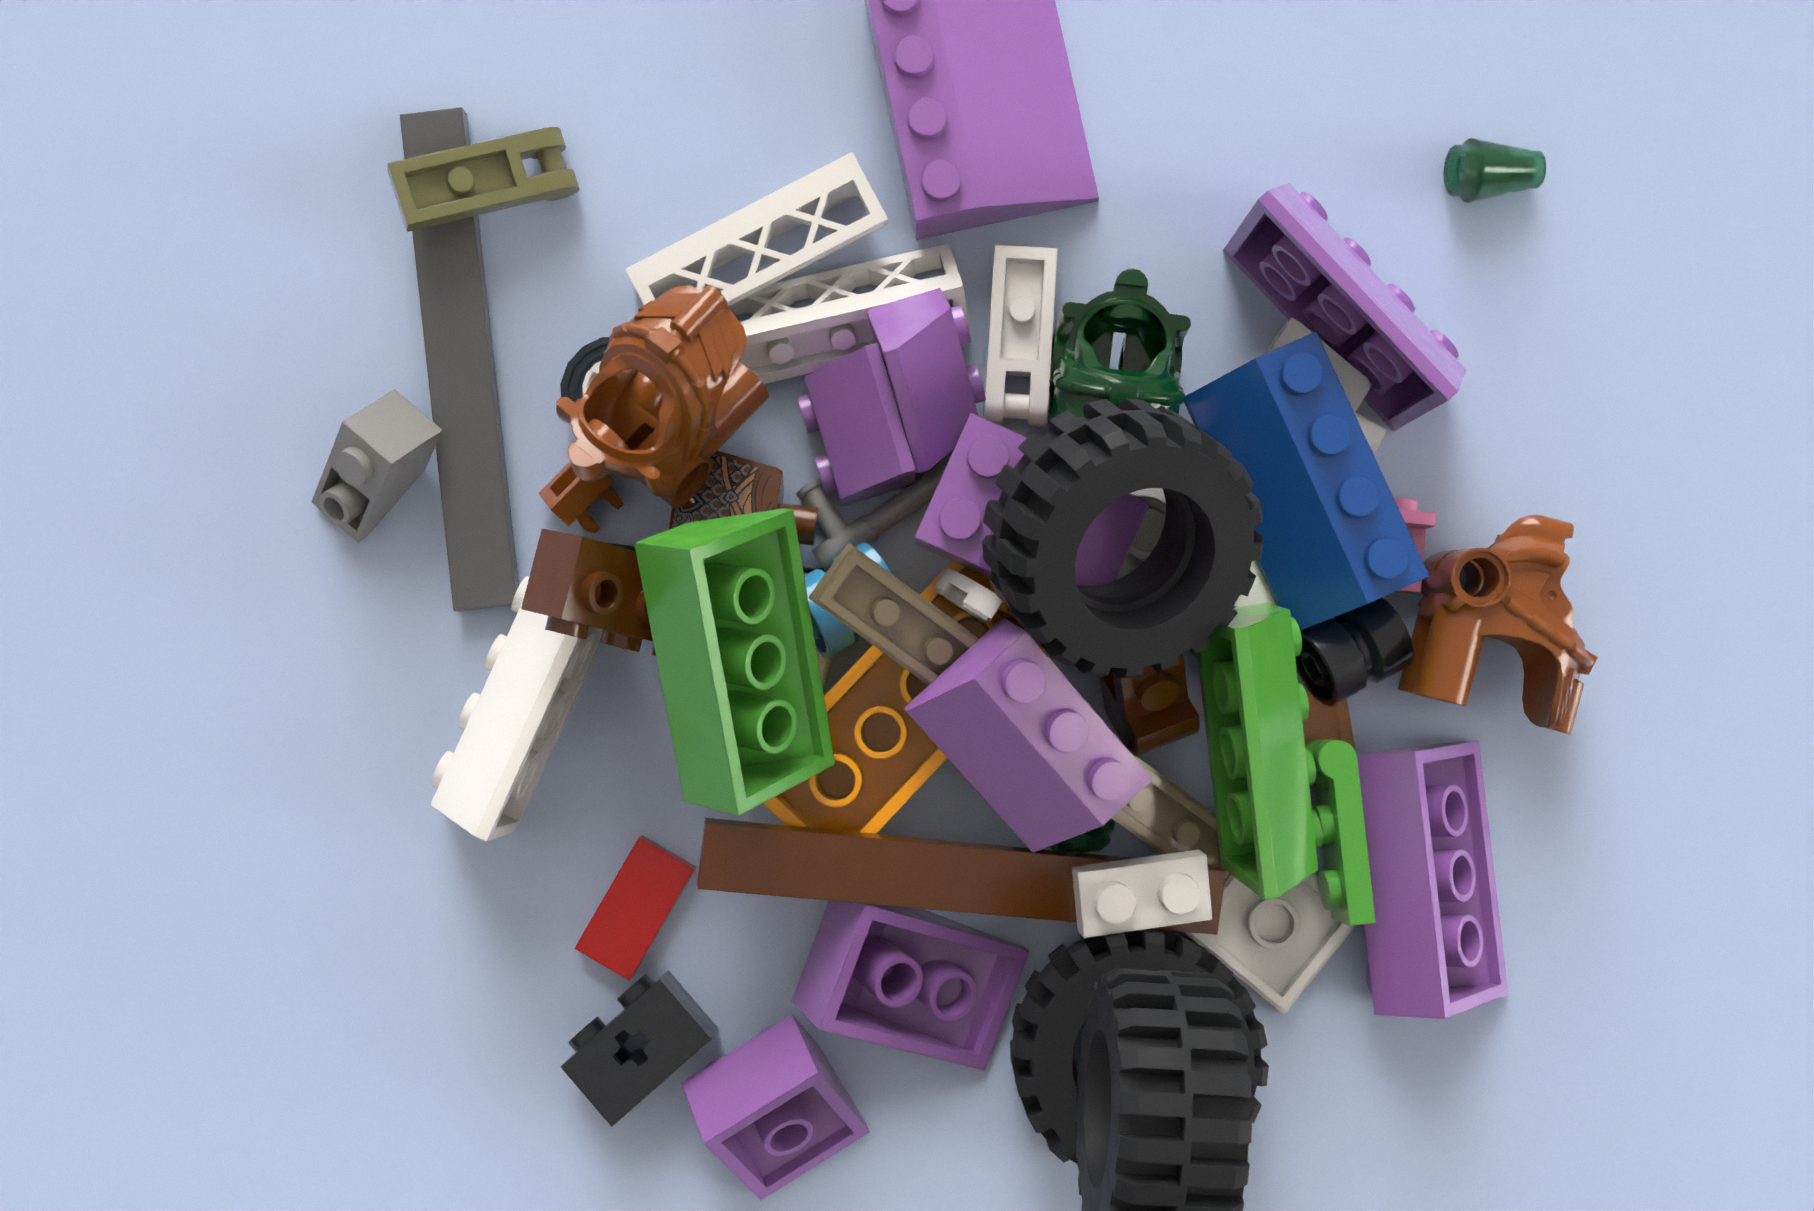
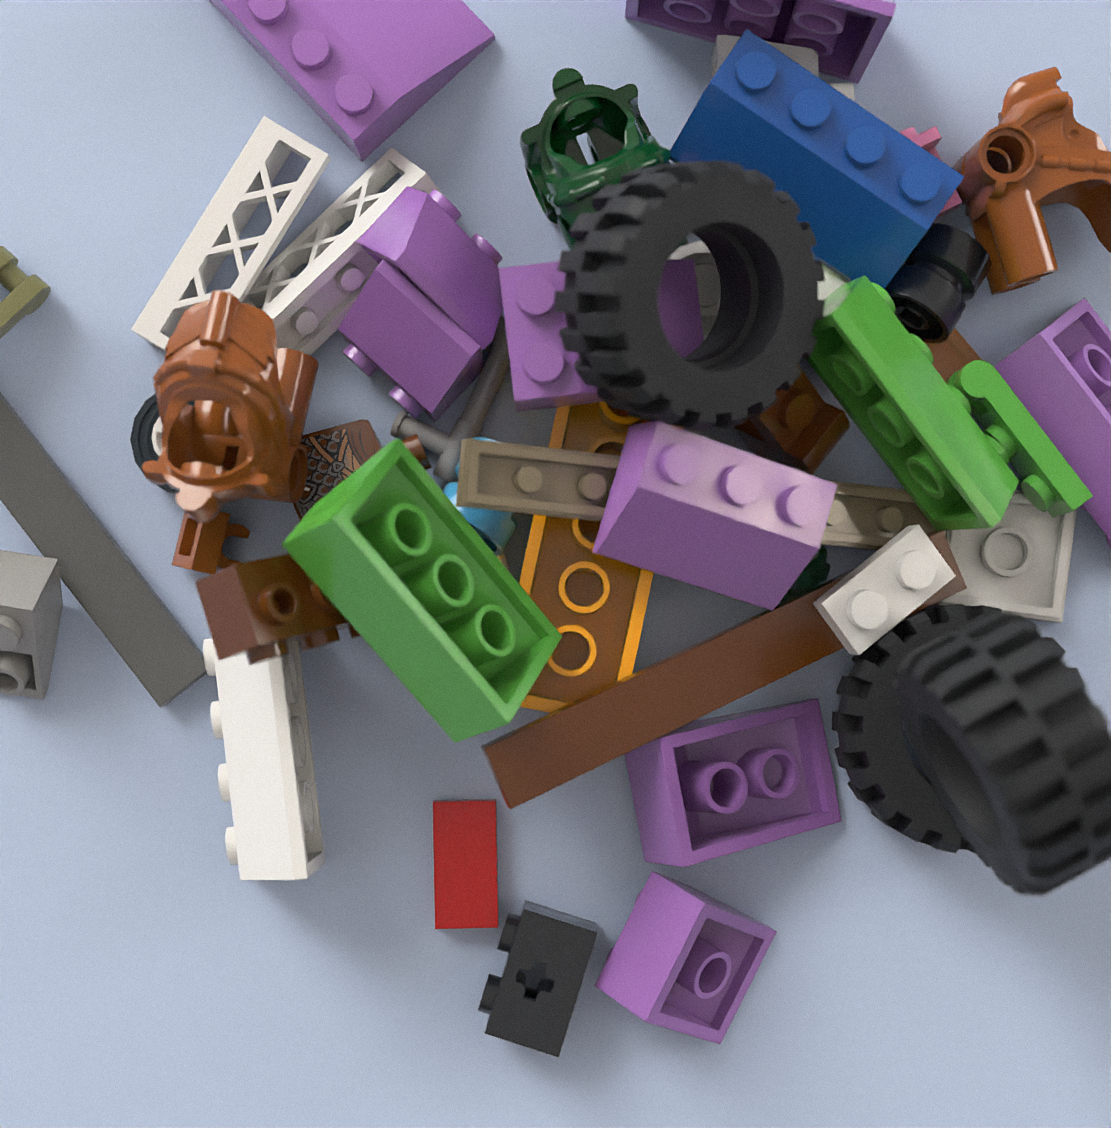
camera: 30 degrees left, 0 degrees up
(967, 595) = (588, 425): white tile -> none
(1020, 332) = (496, 183): white plate -> none

